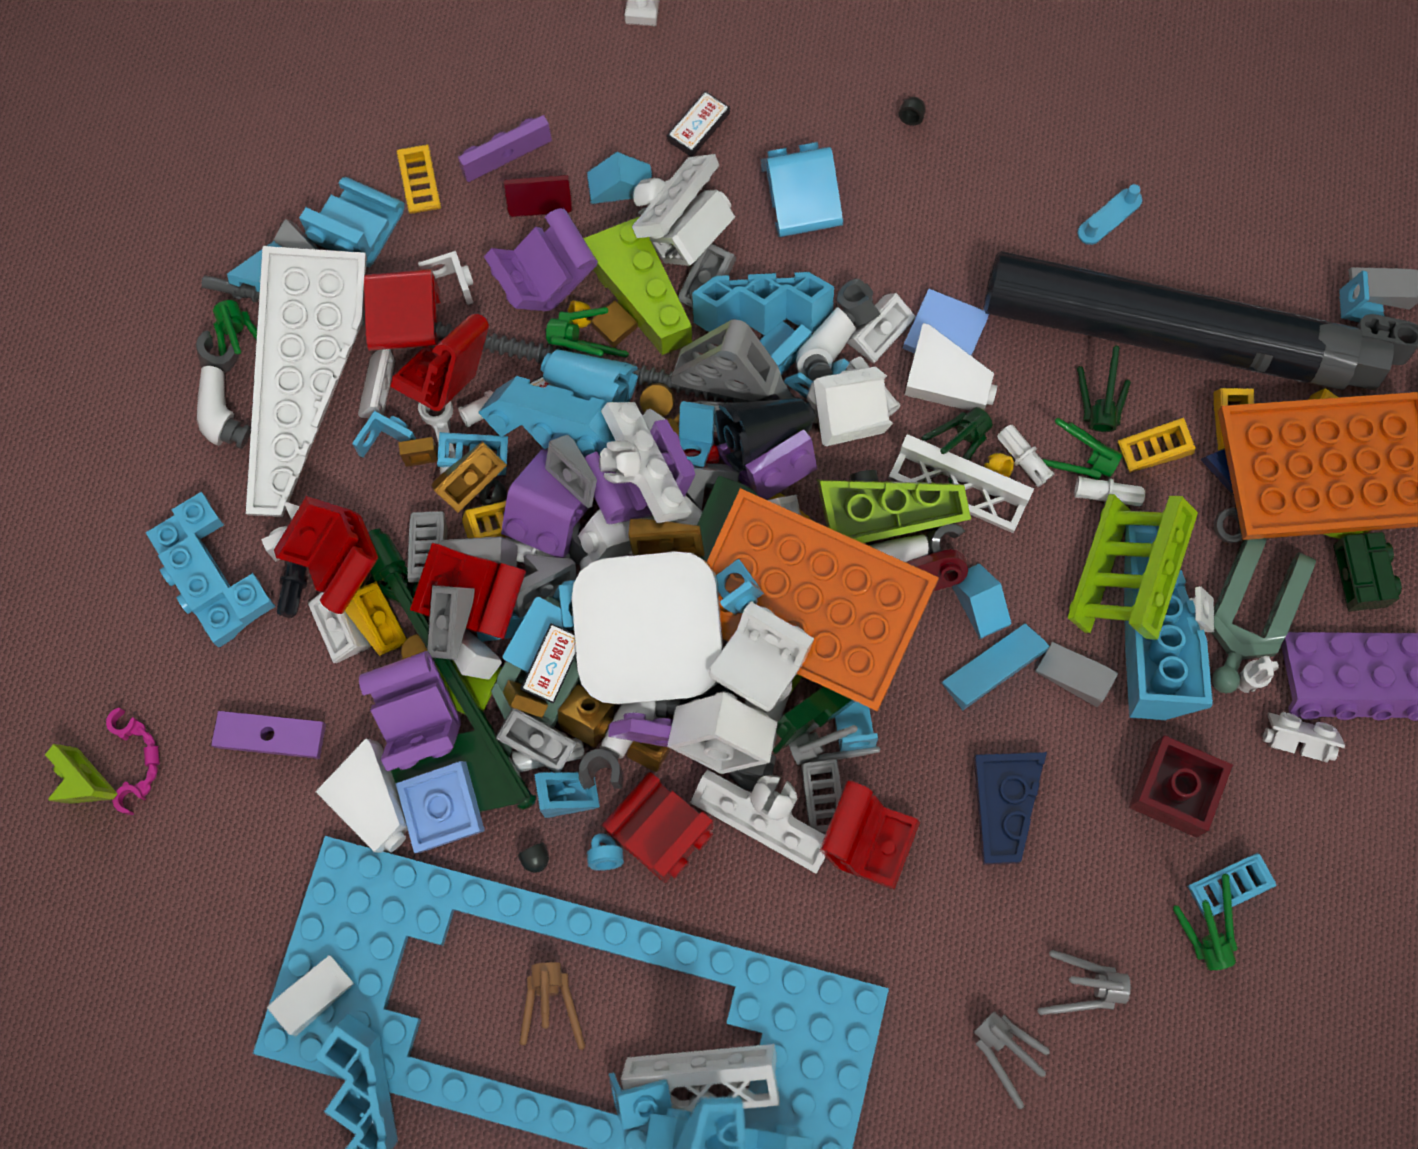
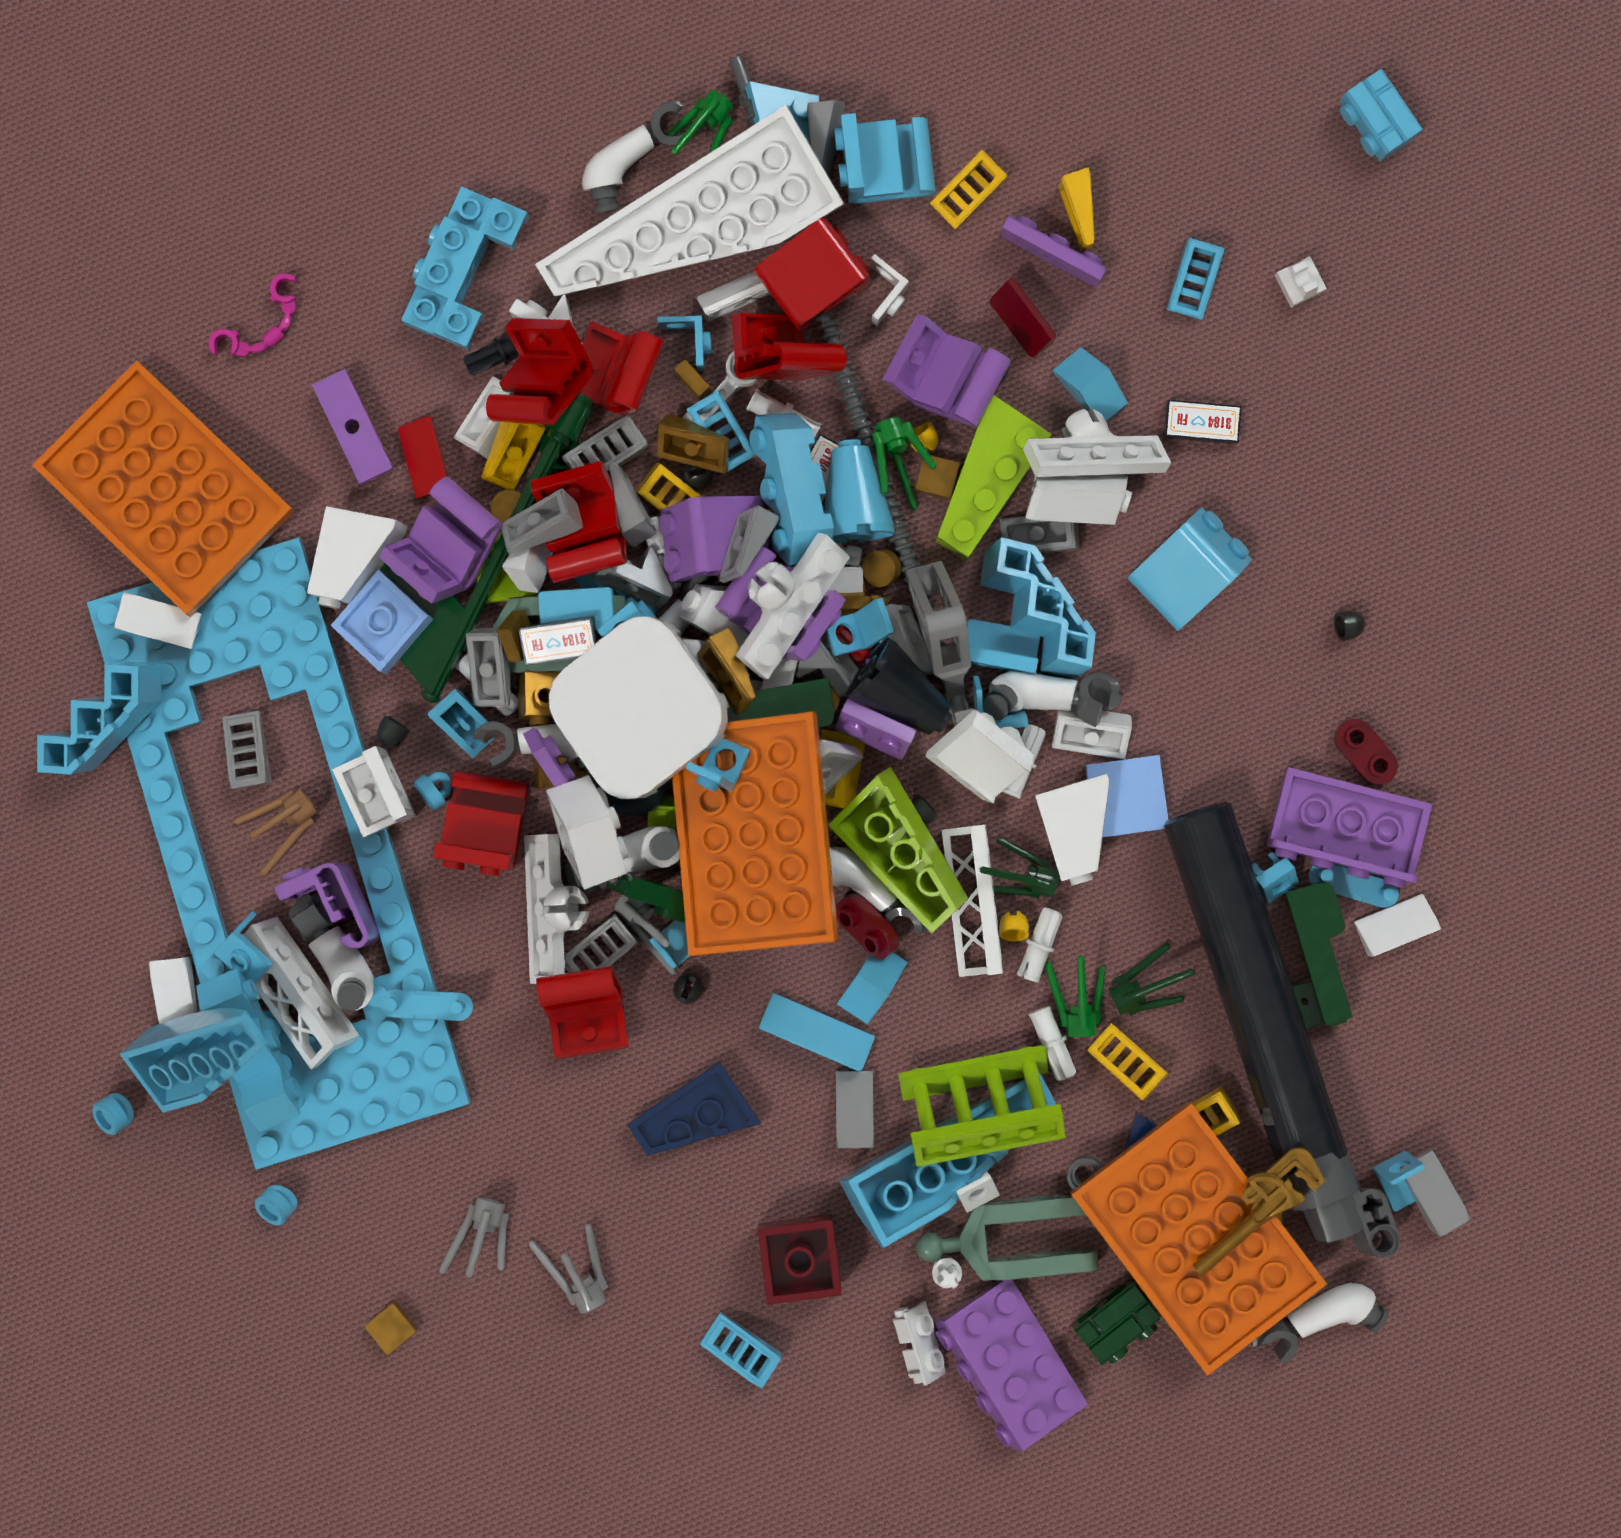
camera: 60 degrees right, 15 degrees up
(81, 778) = (214, 294): lime slope -> none
(205, 922) = (163, 488): none -> orange plate
(331, 694) = (423, 455): none -> red slope
(374, 490) = (620, 367): none -> red piece
(484, 112) = (1077, 199): none -> yellow slope
(496, 1006) = (263, 776): none -> light grey slope
(575, 898) = (374, 791): none -> white bracket
(585, 48) = (1185, 261): none -> medium azure slope
(639, 982) = (338, 891): none -> medium lavender piece
(688, 1021) = (345, 966): none -> piece
(761, 657) = (666, 826): white bracket -> none
(782, 970) = (426, 1005): none -> medium azure piece
(892, 751) = (695, 992): none -> pearl dark grey hinge
(1016, 152) = (1364, 754): none -> dark red plate
(1065, 191) = (1348, 827): none -> medium lavender bracket
(1073, 254) = (1276, 879): none -> medium azure tile
(1124, 253) = (1315, 920): none -> dark green piece
(1160, 202) = (1396, 925): none -> white slope
(1216, 949) = (676, 1364): green plant -> none
(1333, 386) = (1270, 1198): none -> pearl gold piece

